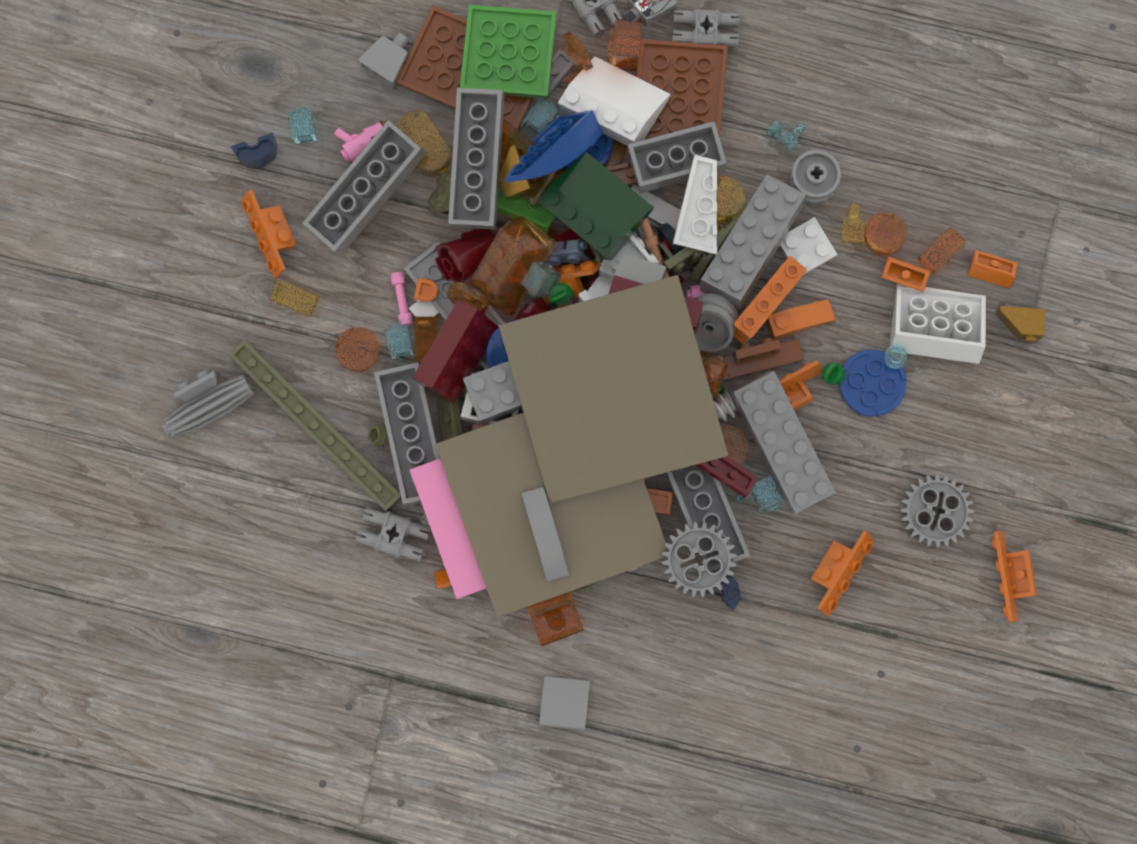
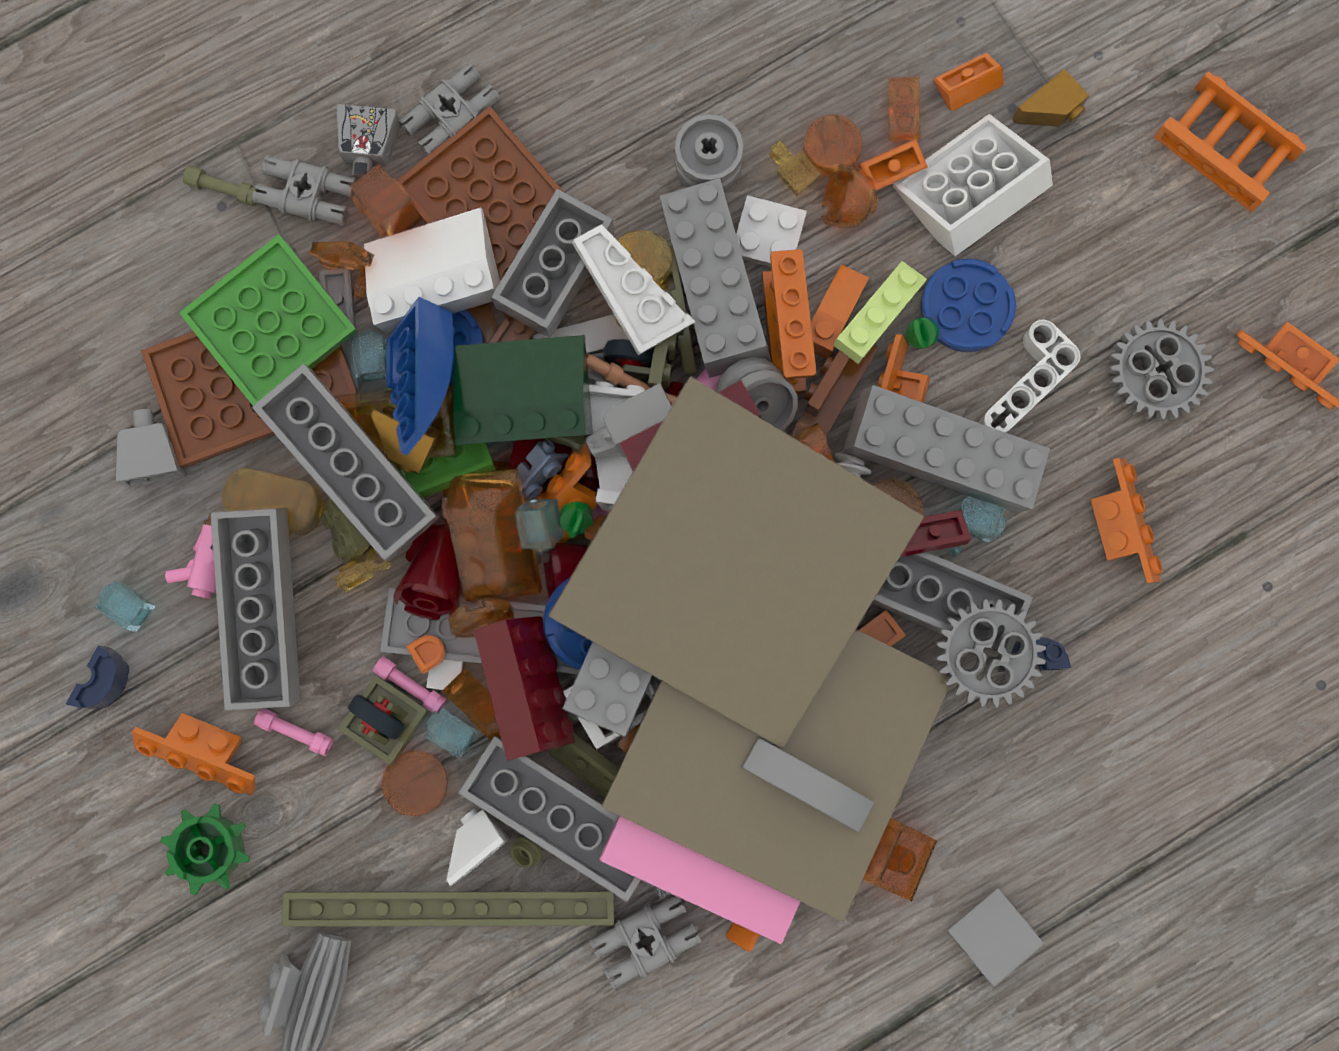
camera: 45 degrees left, 0 degrees up
(221, 271) = (186, 847): none -> green brick
(294, 298) = (293, 795): clear yellow tile -> none
(330, 283) = (269, 720): none -> bright pink bar
(357, 406) = (474, 843): none -> white slope
(372, 303) = (383, 720): none -> olive plate
(429, 218) = (355, 574): none -> clear yellow plate
(788, 139) = (644, 140): clear light blue piece -> none
(820, 341) = (879, 312): none -> yellowish green plate
(857, 451) = (1047, 367): none -> white beam
(865, 269) = (849, 197): none -> clear orange cylinder
(895, 357) = (968, 255): clear light blue tile -> none
(1079, 444) = (1212, 165): none -> orange fence

